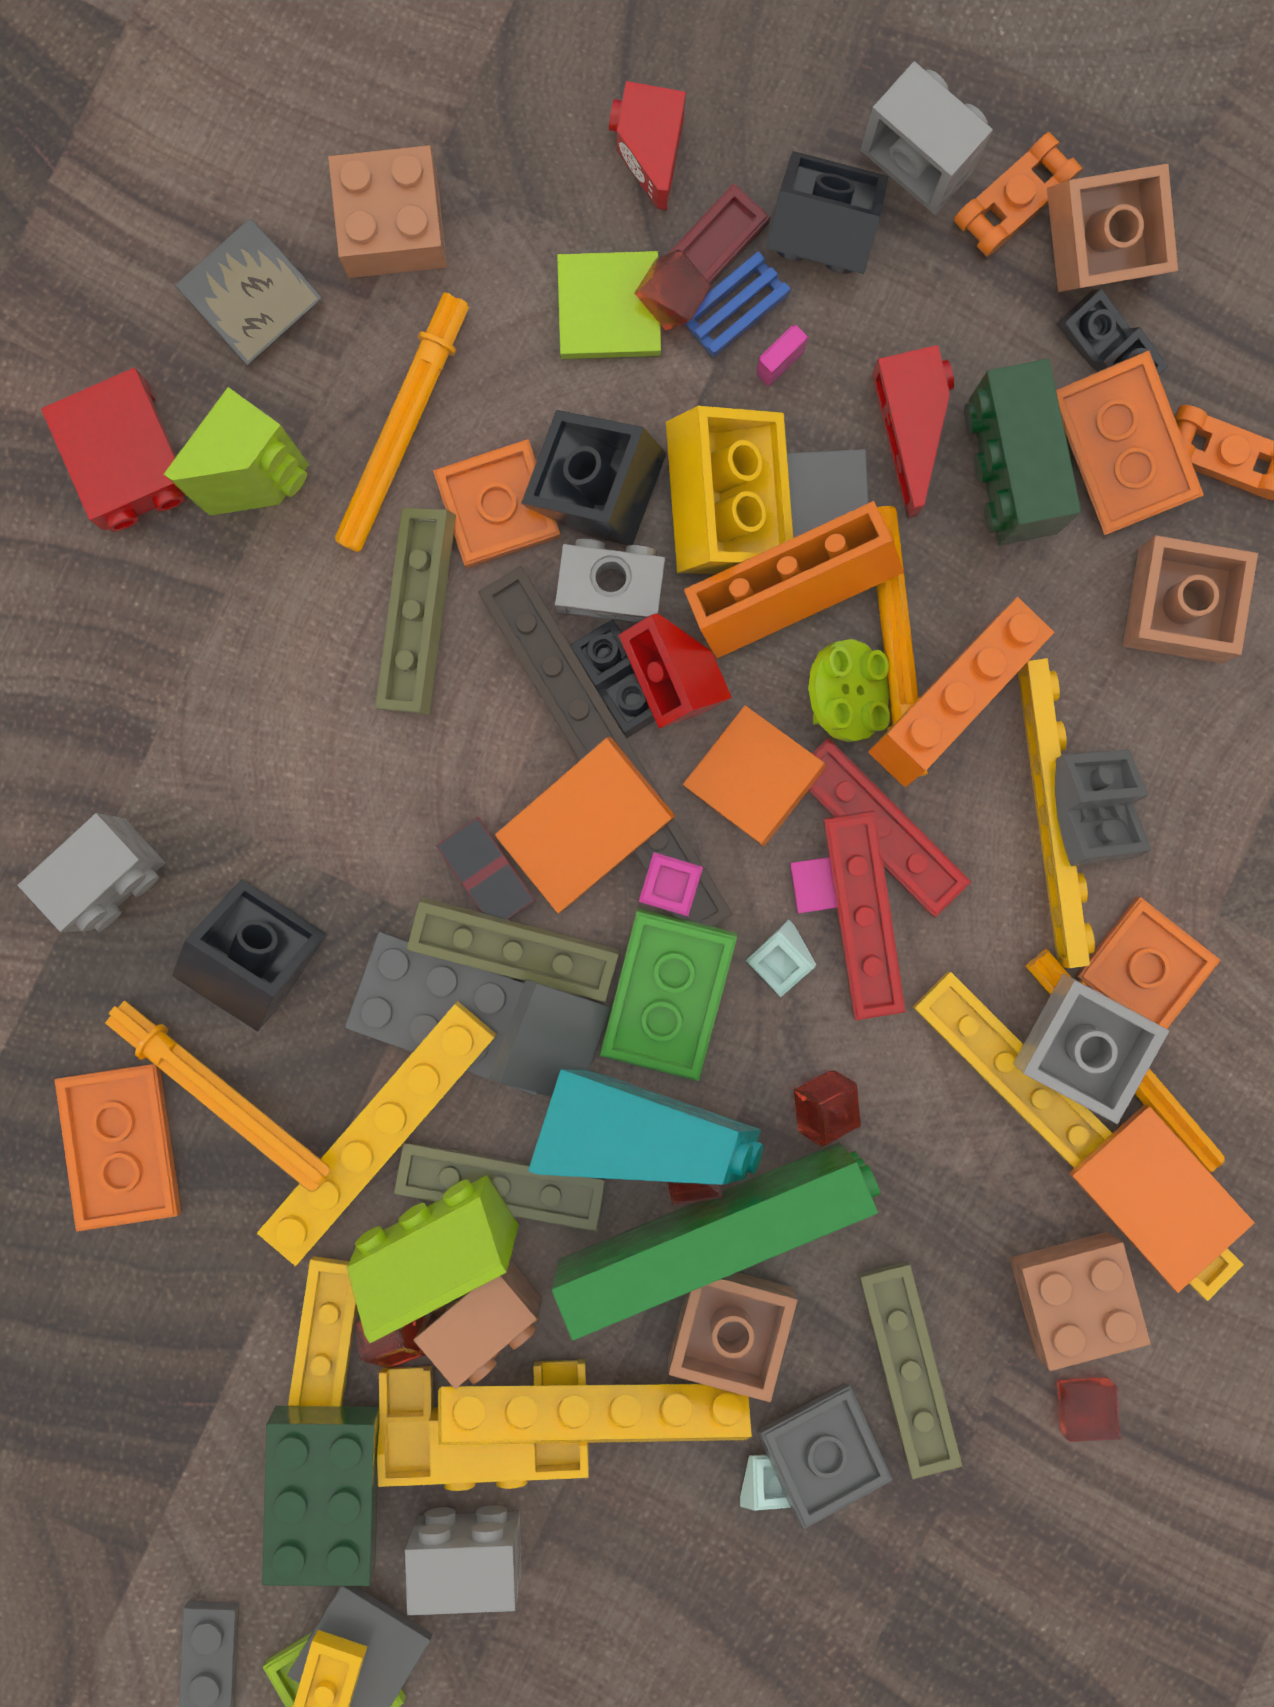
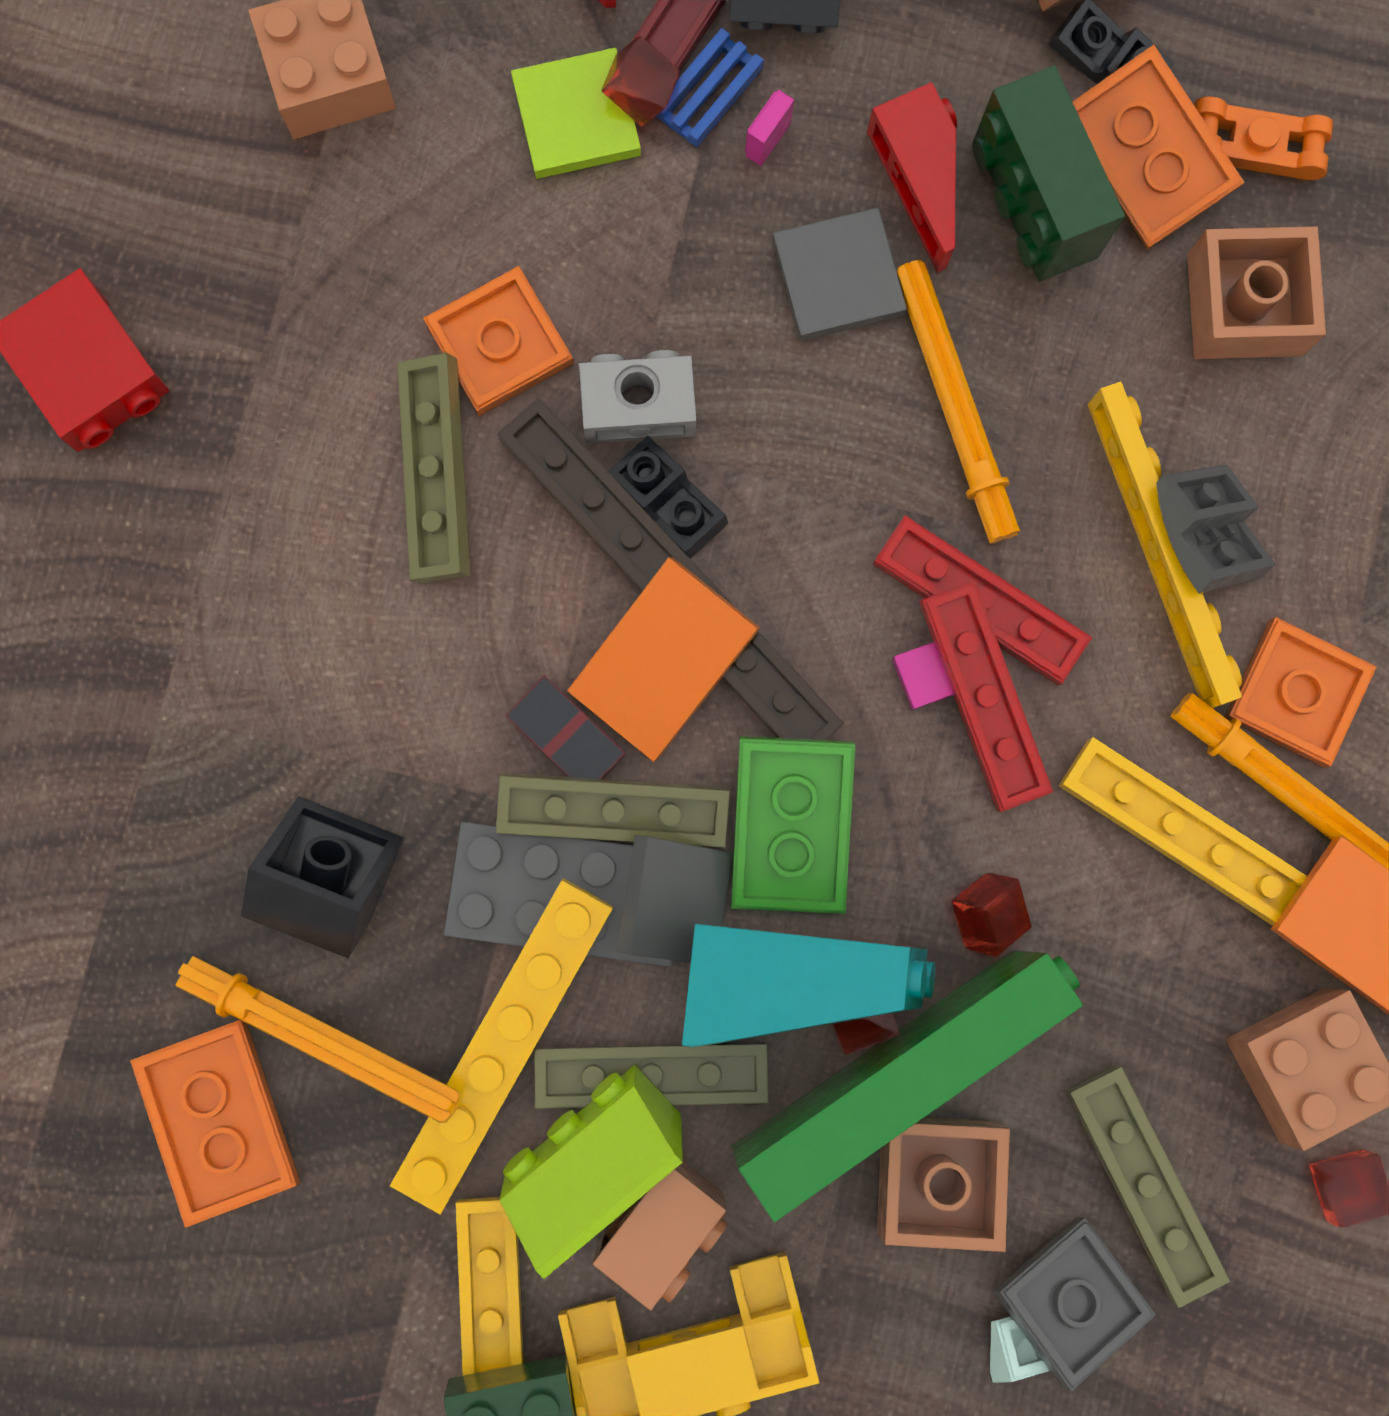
camera: 20 degrees left, 5 degrees down
(93, 875) = (132, 820): light grey brick -> none
(238, 460) = (210, 338): lime slope -> none
(248, 291) = (188, 170): slope -> none
(393, 1348) = (569, 1282): clear red slope -> none
(402, 421) = (379, 275): light orange axle -> none
(590, 1414) = (806, 1309): yellow plate -> none
(595, 476) = (598, 287): black slope -> none
(670, 884) = (770, 703): dark pink tile -> none
(673, 670) = (725, 474): red slope -> none
(727, 486) = (744, 276): yellow slope -> none
(754, 775) = (835, 570): orange tile -> none
(782, 959) = (907, 762): light aqua slope -> none
(794, 580) = (835, 351): orange brick -> none
(850, 690) = (918, 458): lime plate -> none
(961, 692) = (1038, 435): orange brick -> none
(1090, 1048) = (1266, 782): light grey brick -> none

